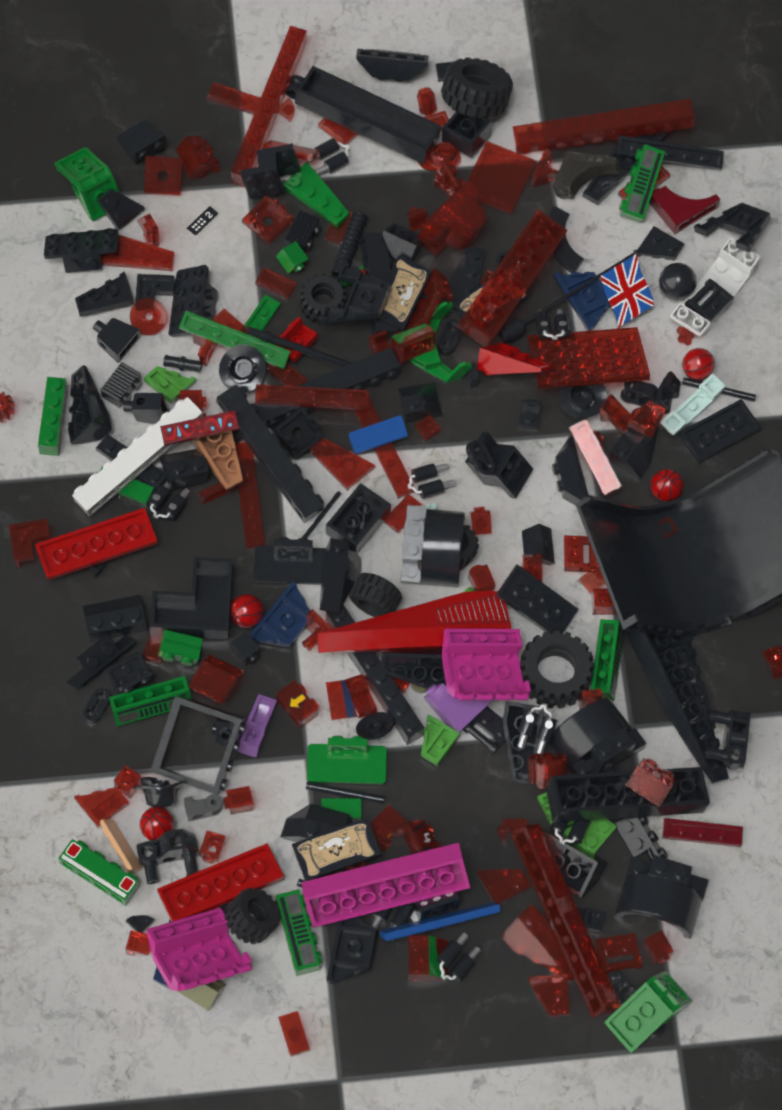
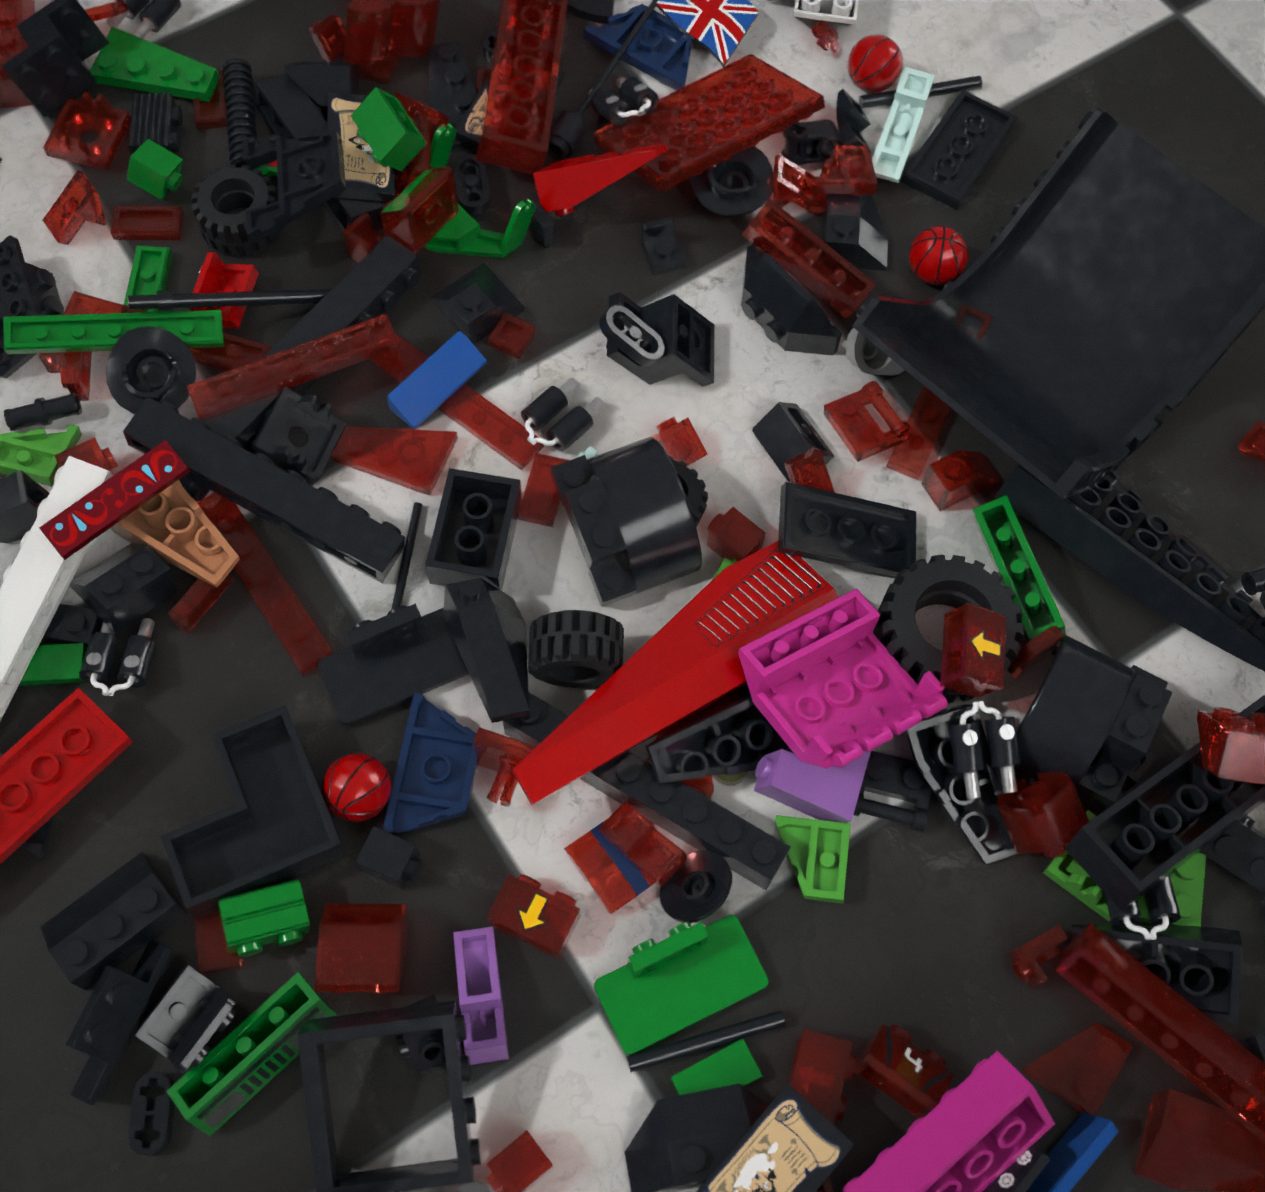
camera: 25 degrees left, 0 degrees up
(242, 261) = (73, 207): none -> clear red slope
(417, 293) = (388, 130): none -> green brick
(552, 681) = (973, 650): none -> clear red brick

